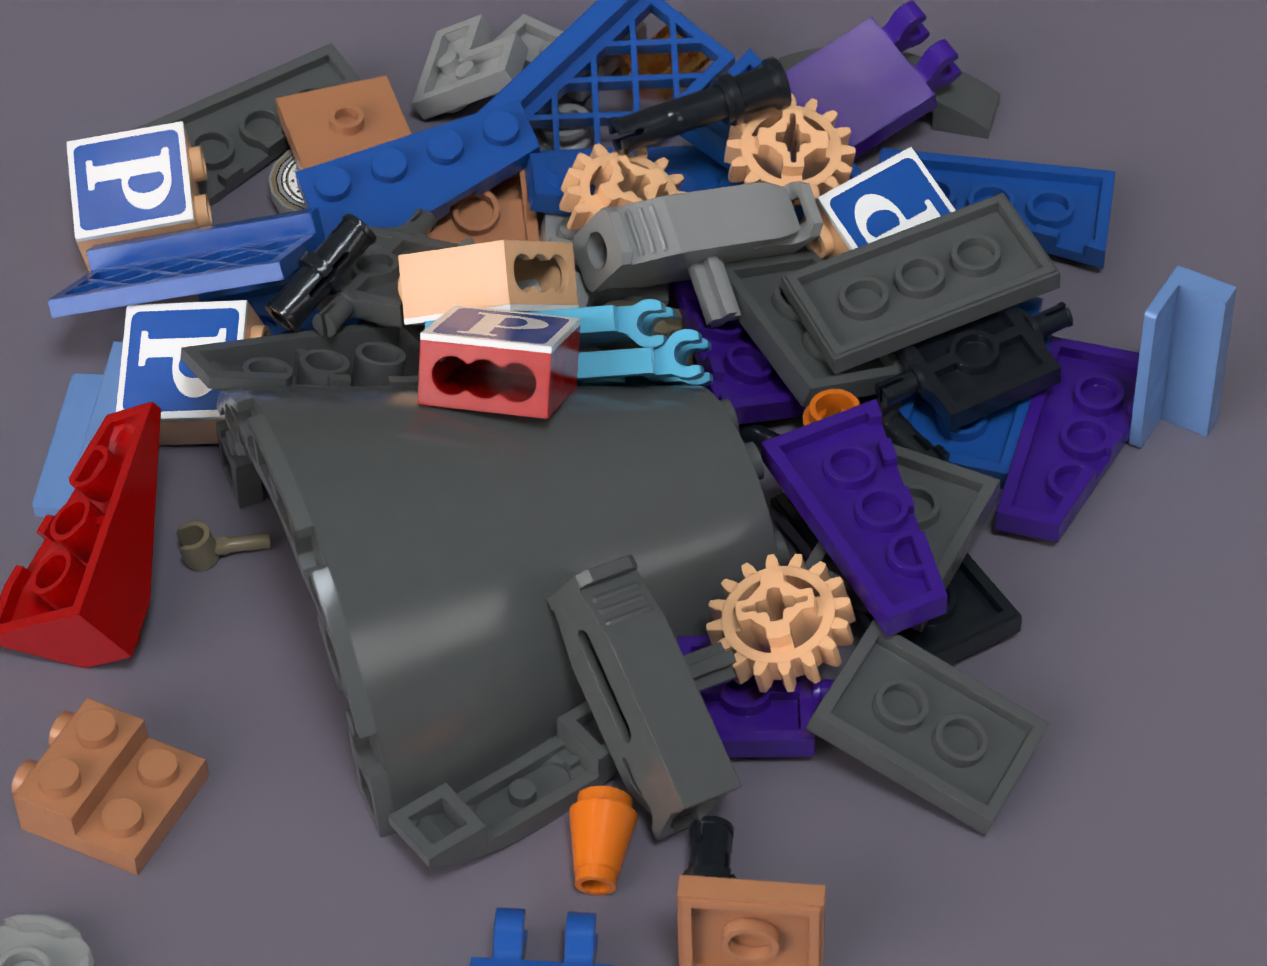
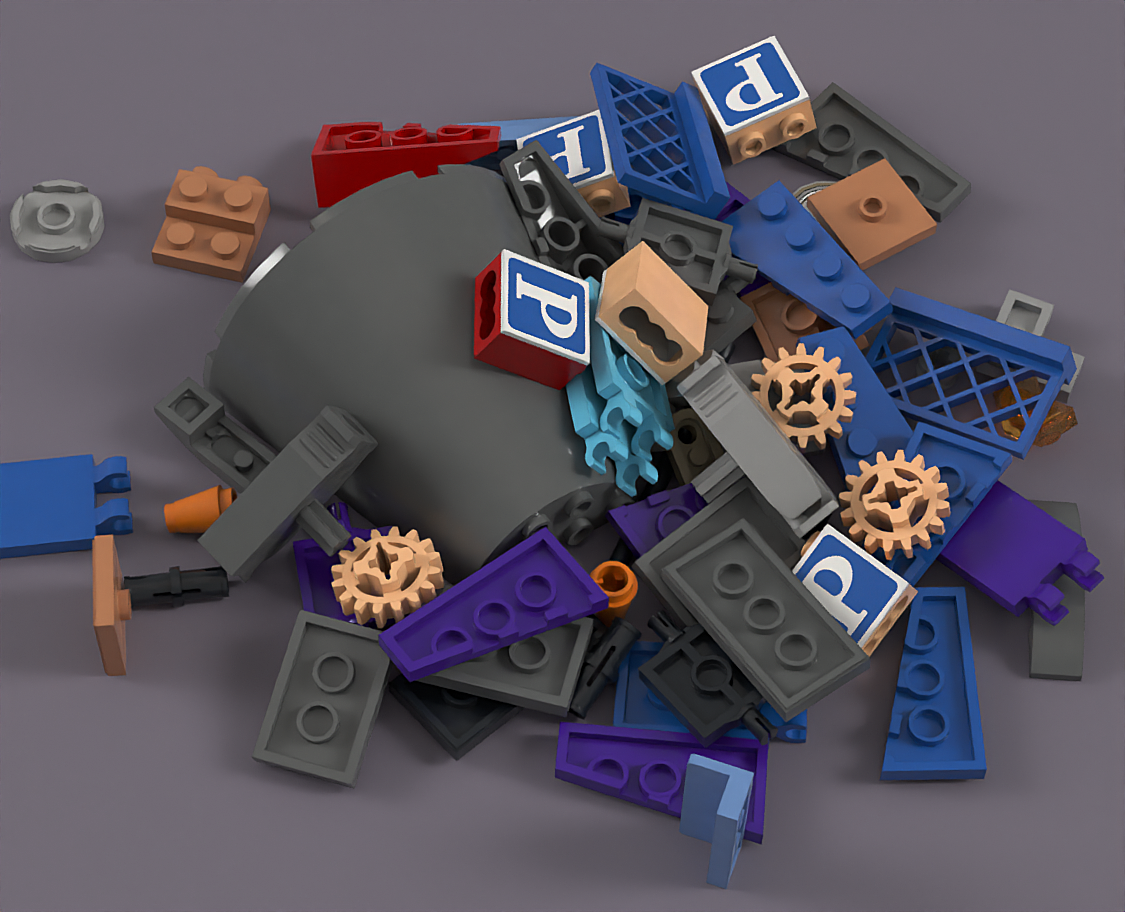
camera: 75 degrees right, 10 degrees up
(320, 273) = (636, 205): black pin -> none
(466, 67) = (969, 278): light grey plate -> none
(725, 100) = (902, 432): black pin -> none

